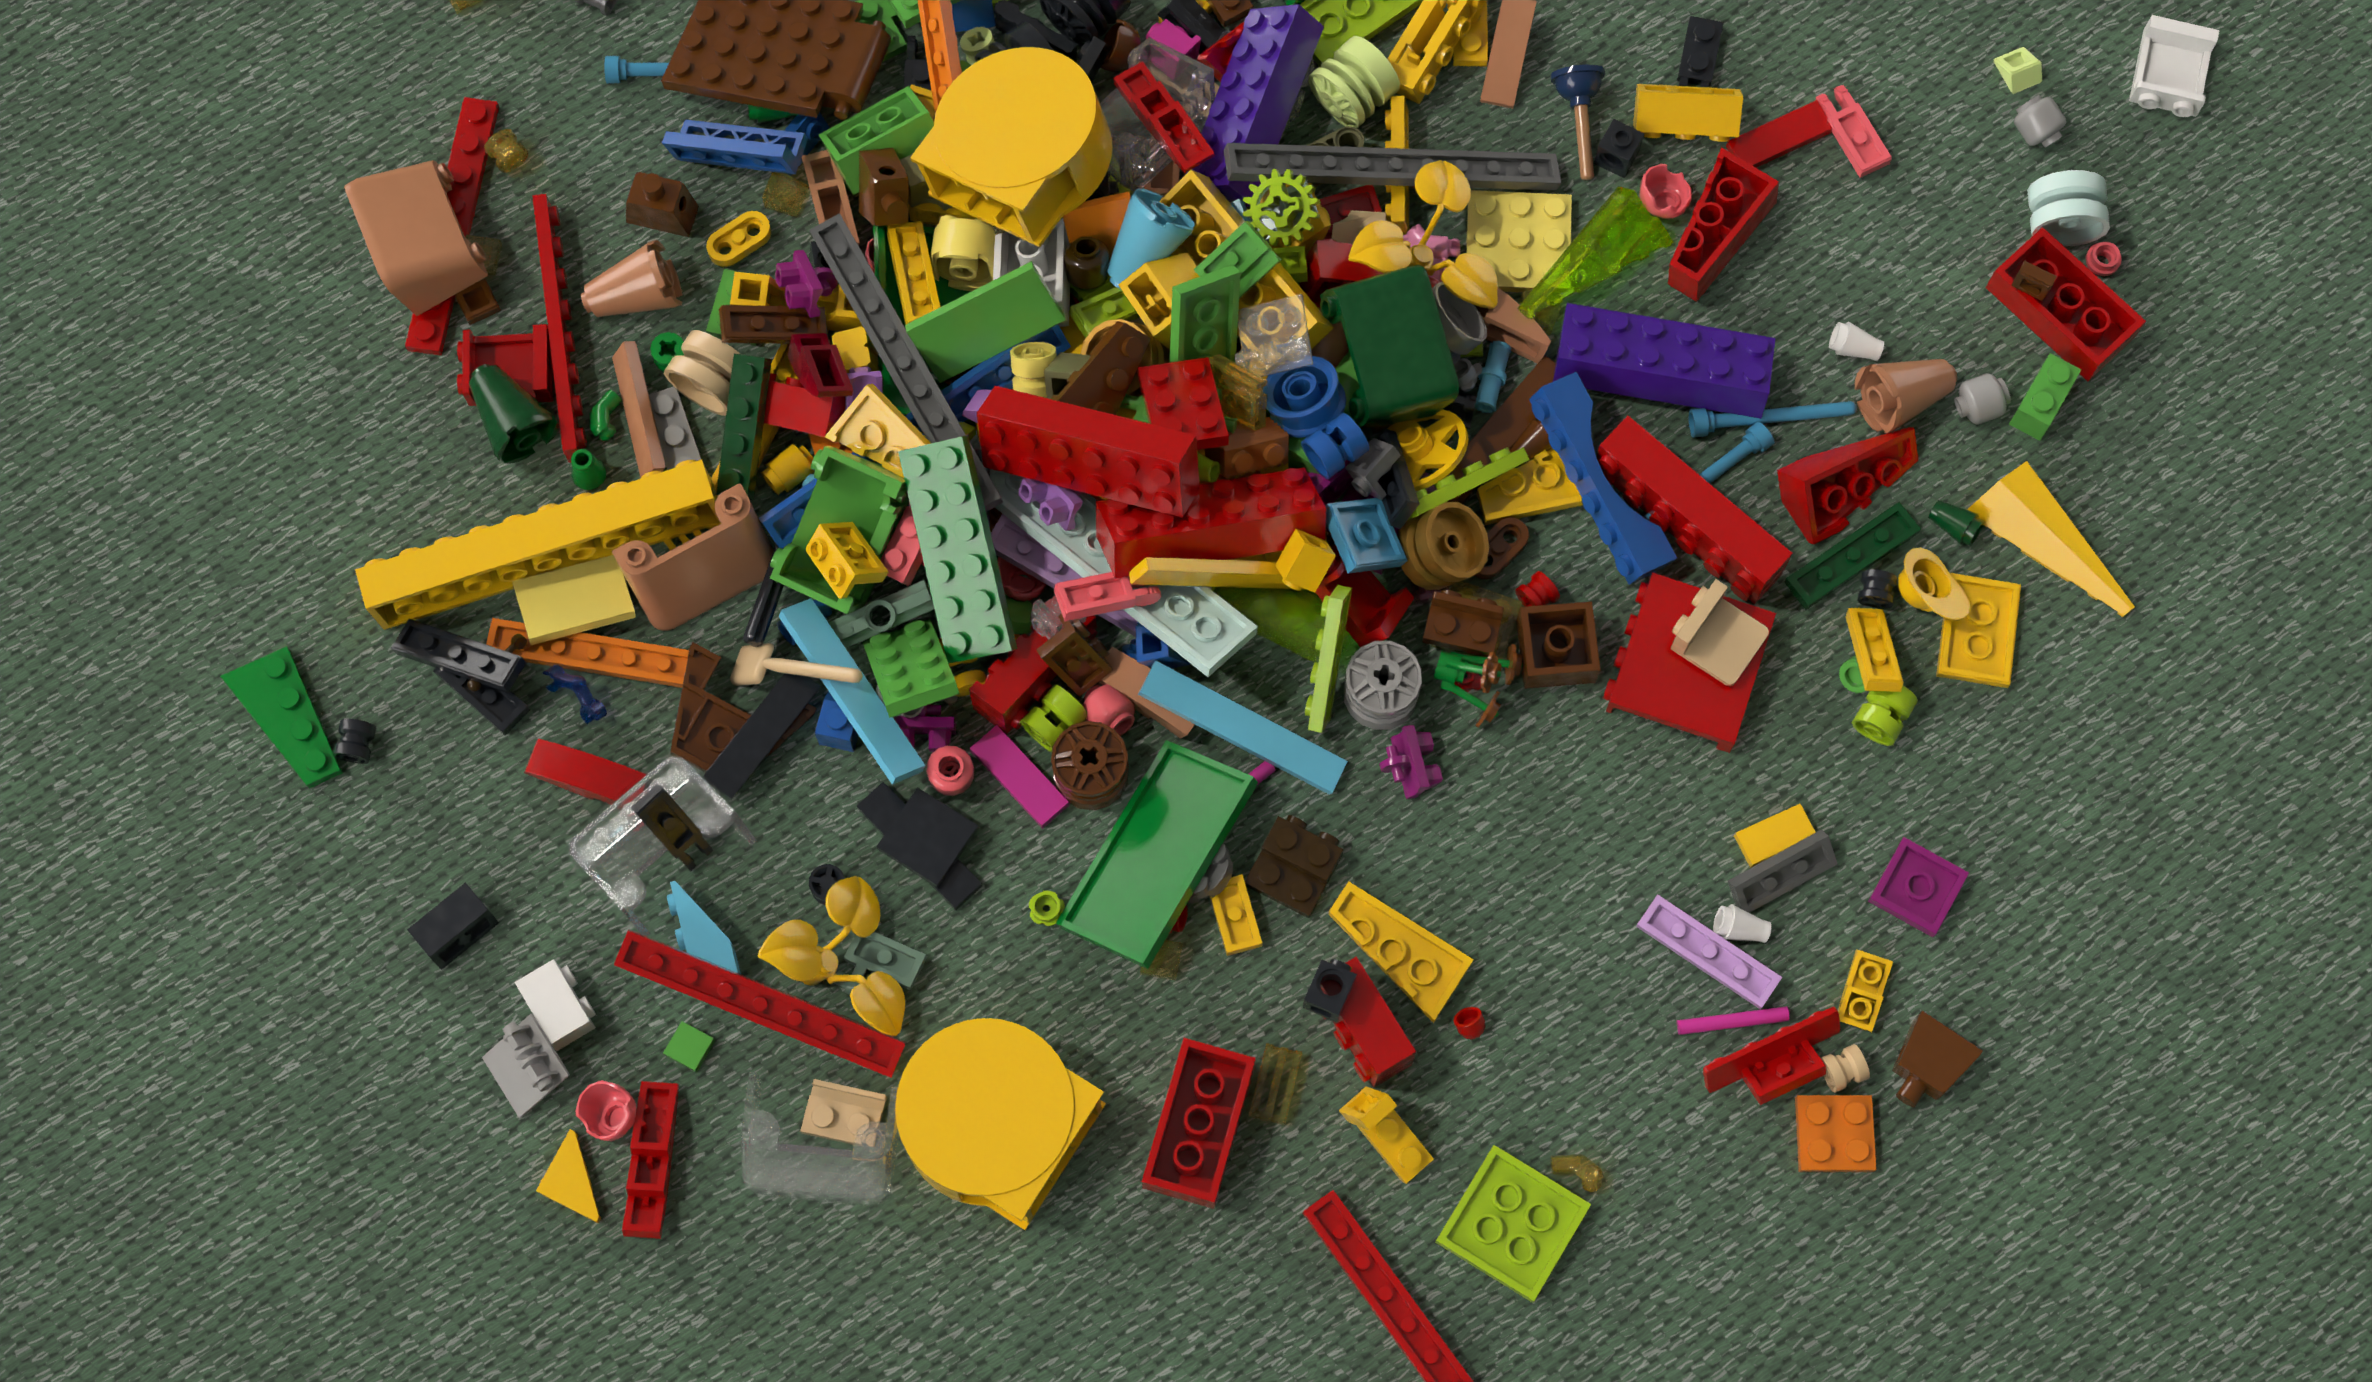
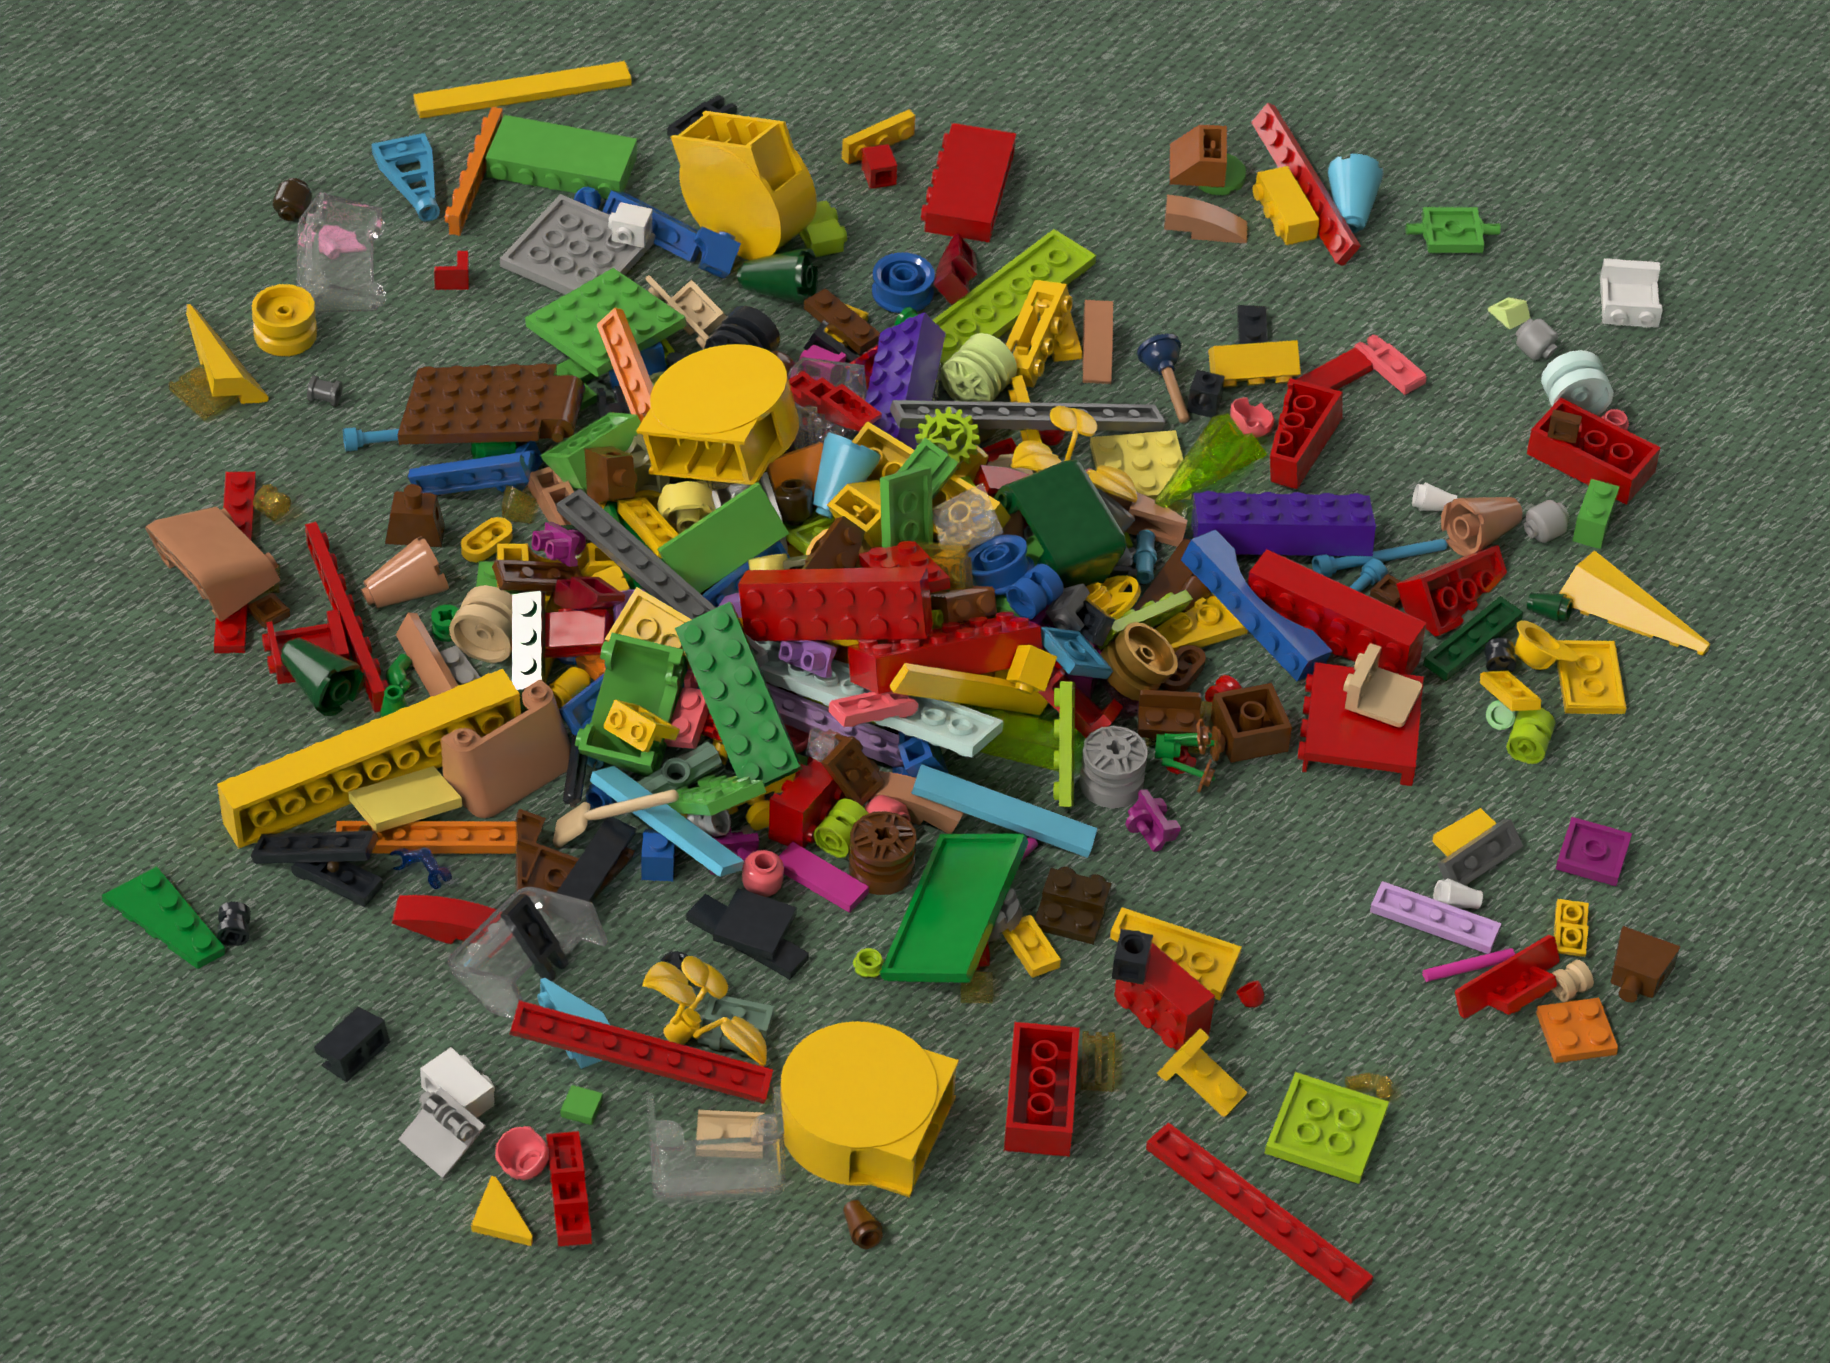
camera: 15 degrees left, 25 degrees down
(961, 1269) = (862, 1225): none -> reddish brown cone
(1765, 467) = (1387, 591): none -> reddish brown tile

